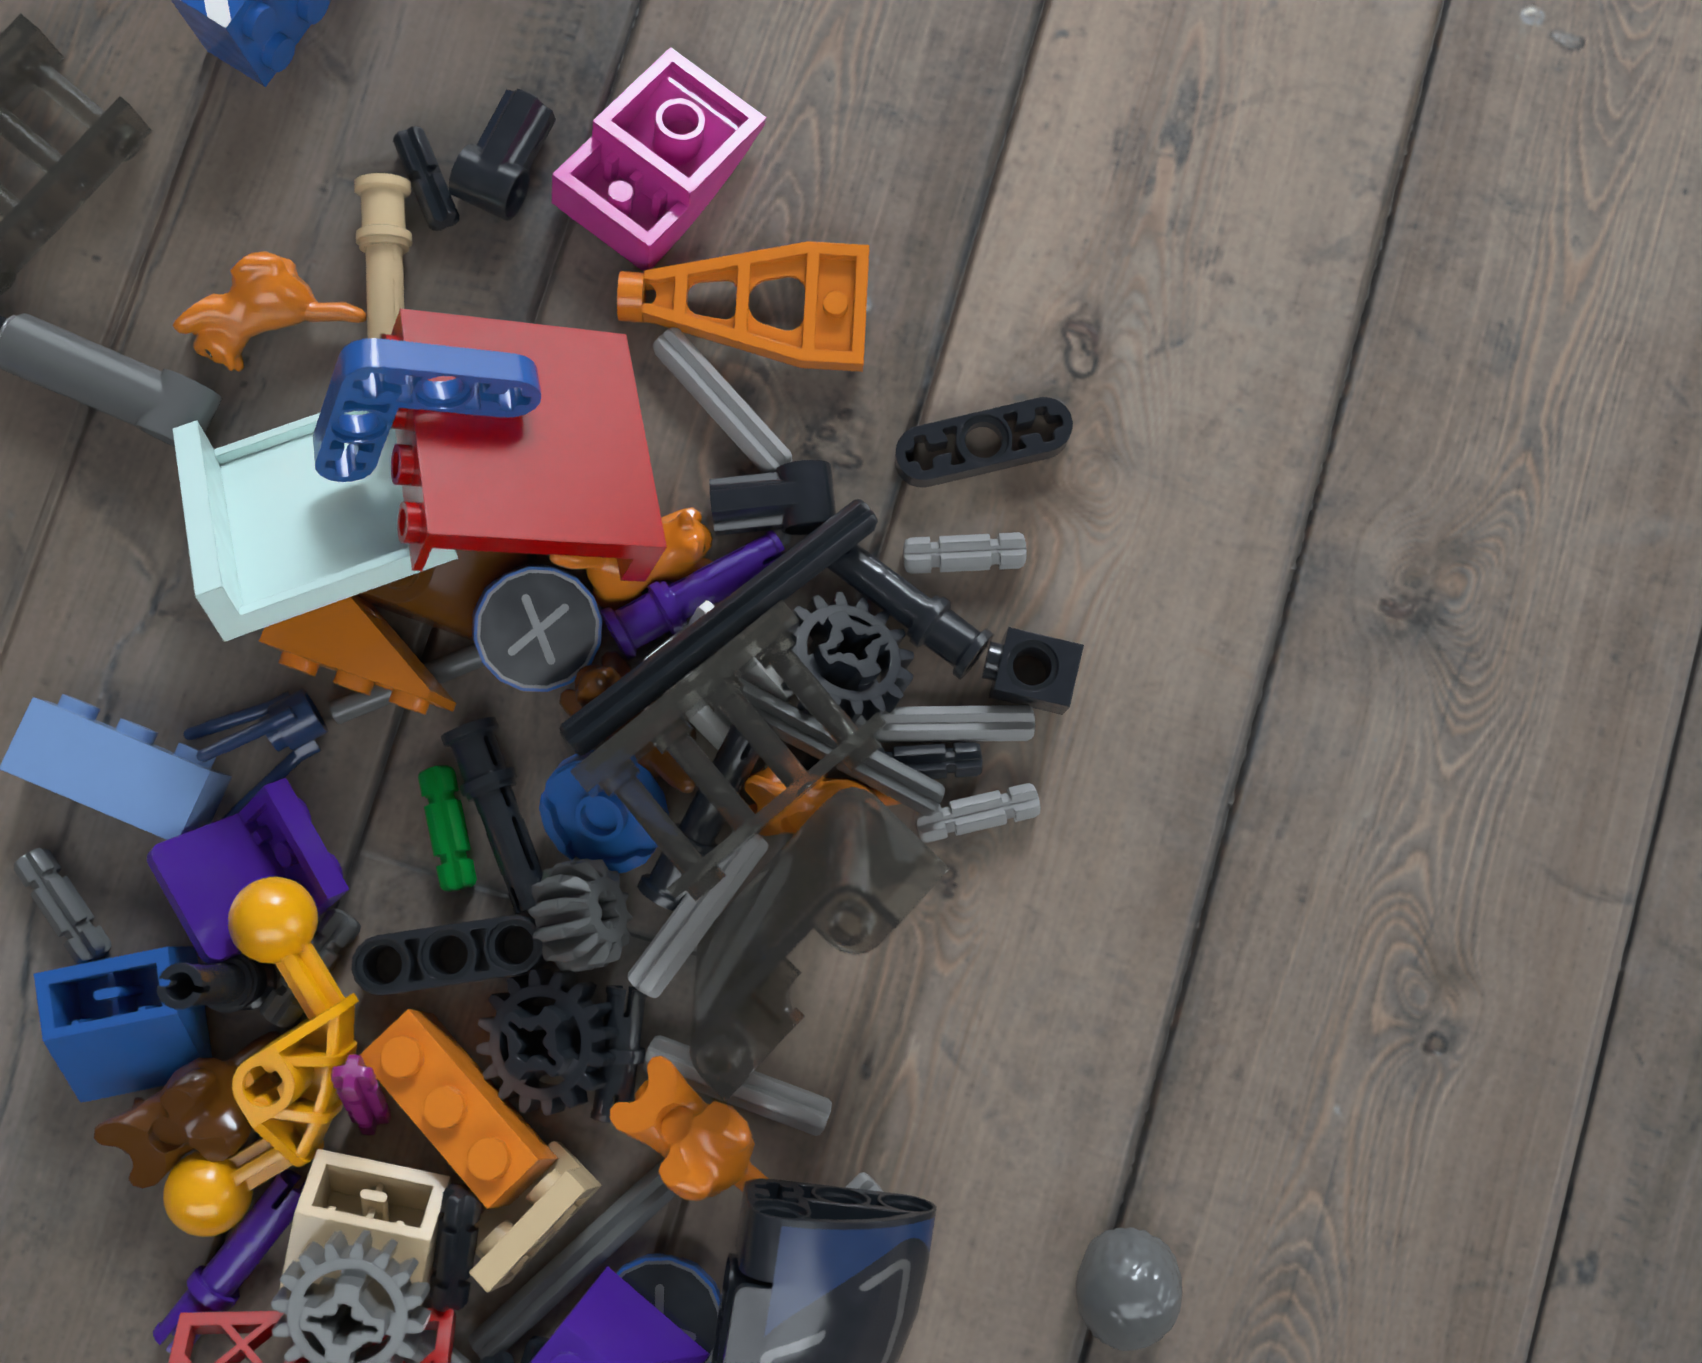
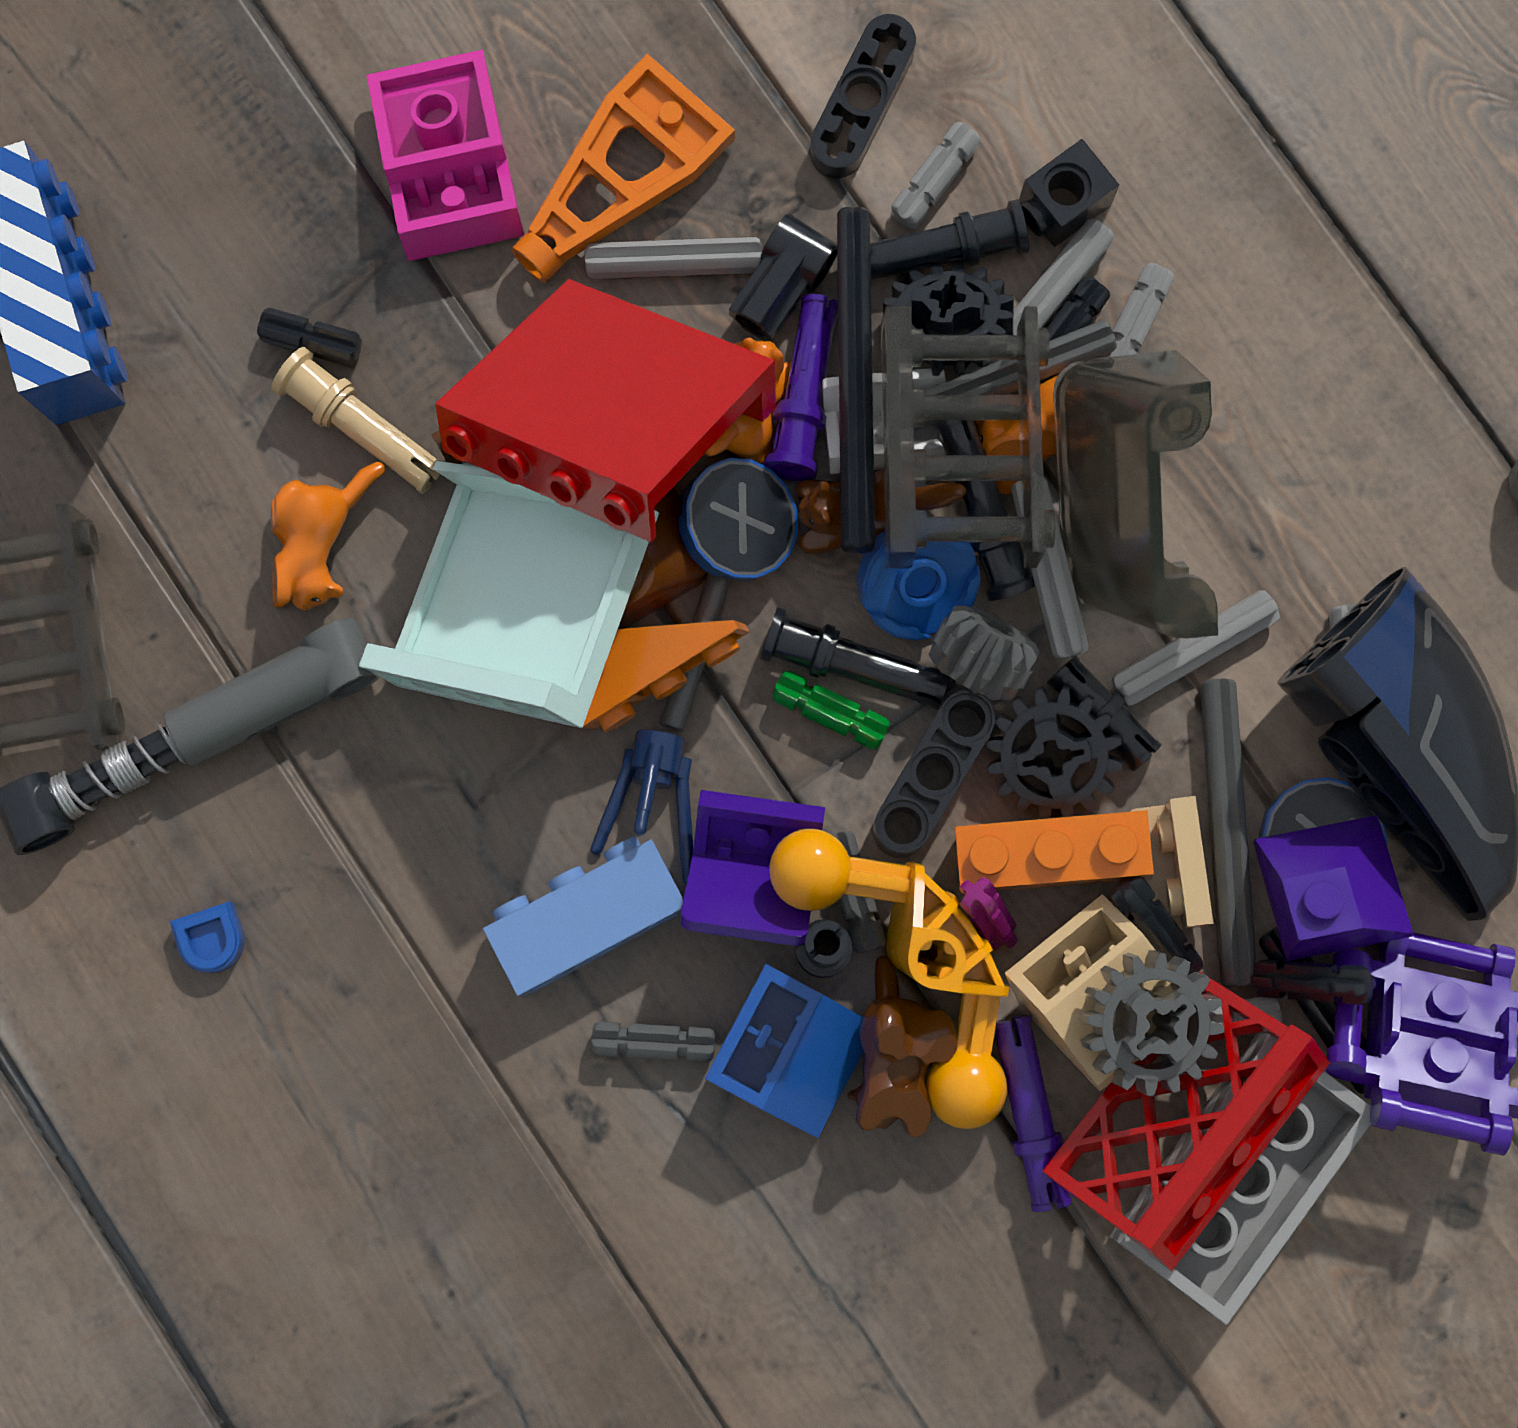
camera: 45 degrees left, 0 degrees up
(394, 374) = (500, 432): blue beam -> none
(497, 169) = (348, 274): black piece -> none
(701, 1143) = (1221, 695): orange animal -> none

